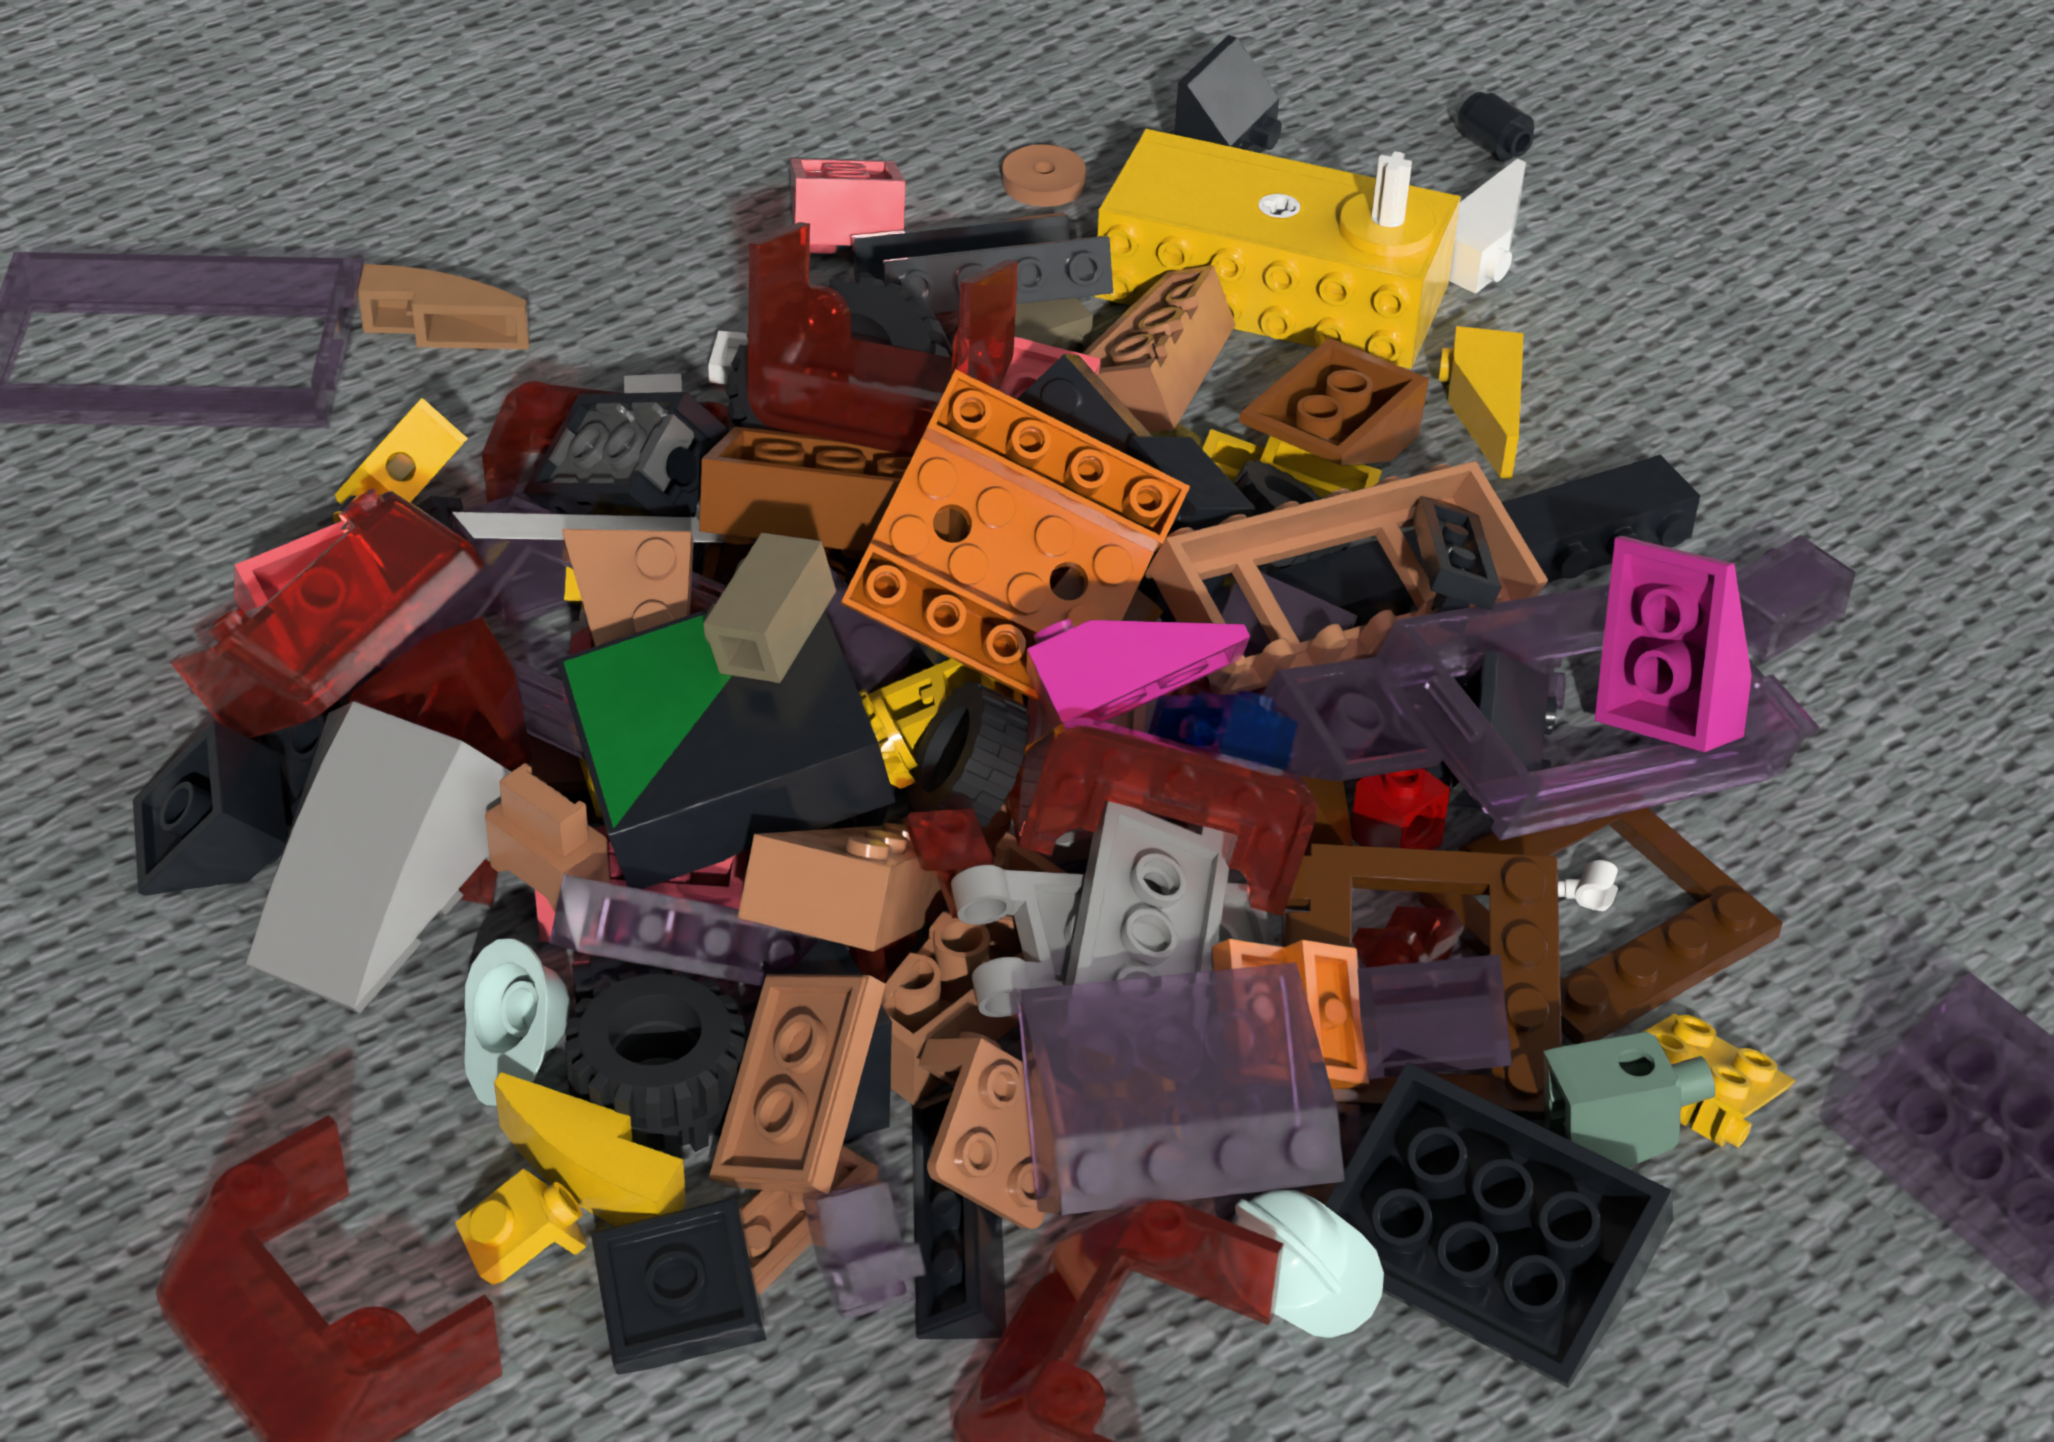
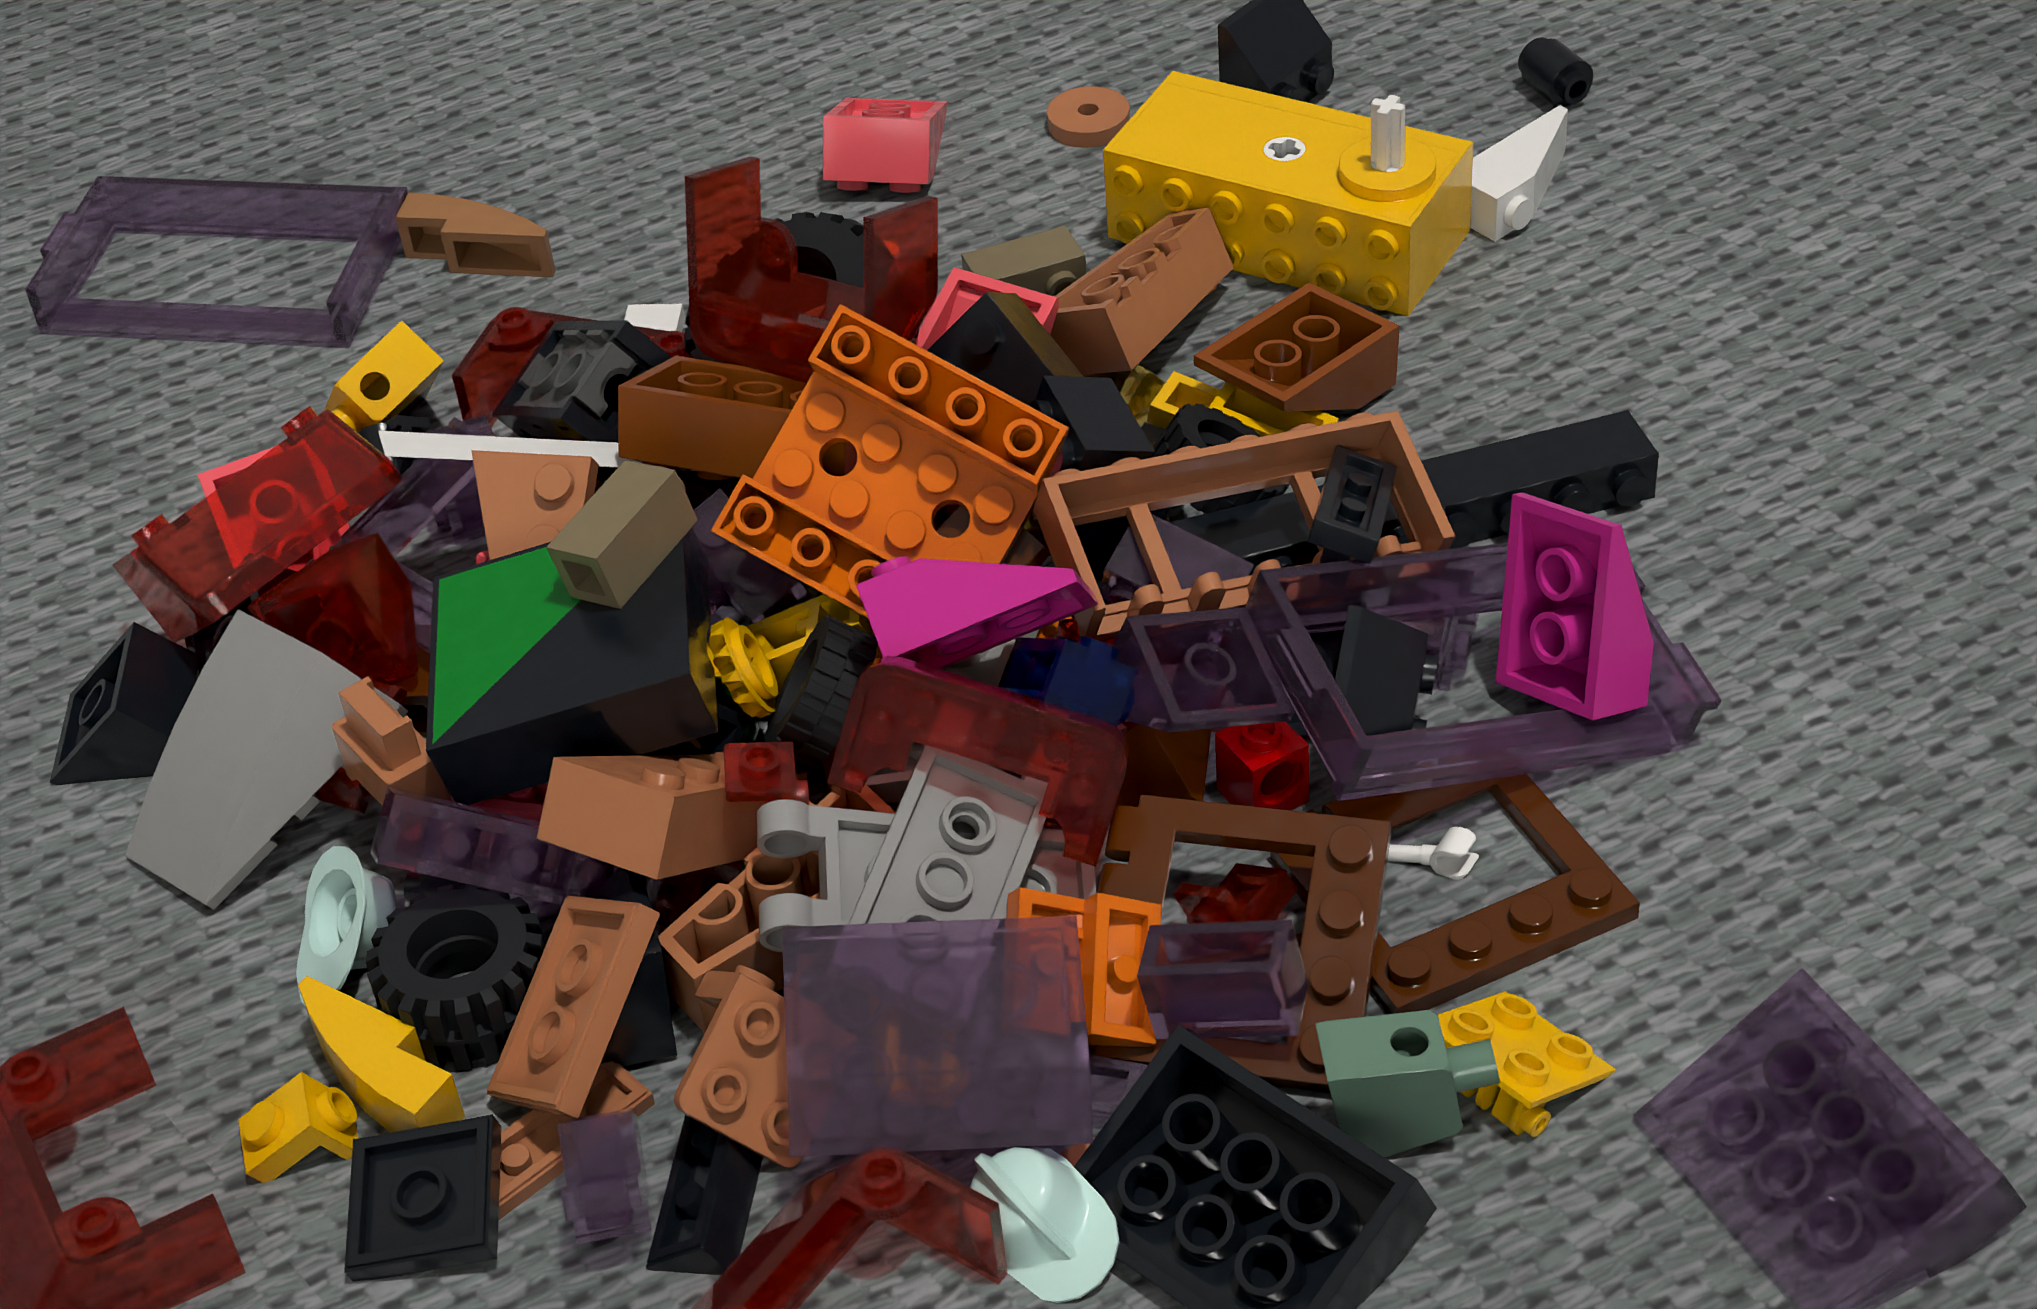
camera: 15 degrees right, 0 degrees up
(940, 257) = (999, 199): black panel -> none
(1486, 390) = (1473, 338): yellow slope -> none
(1791, 596) = (1726, 563): clear purple piece -> none

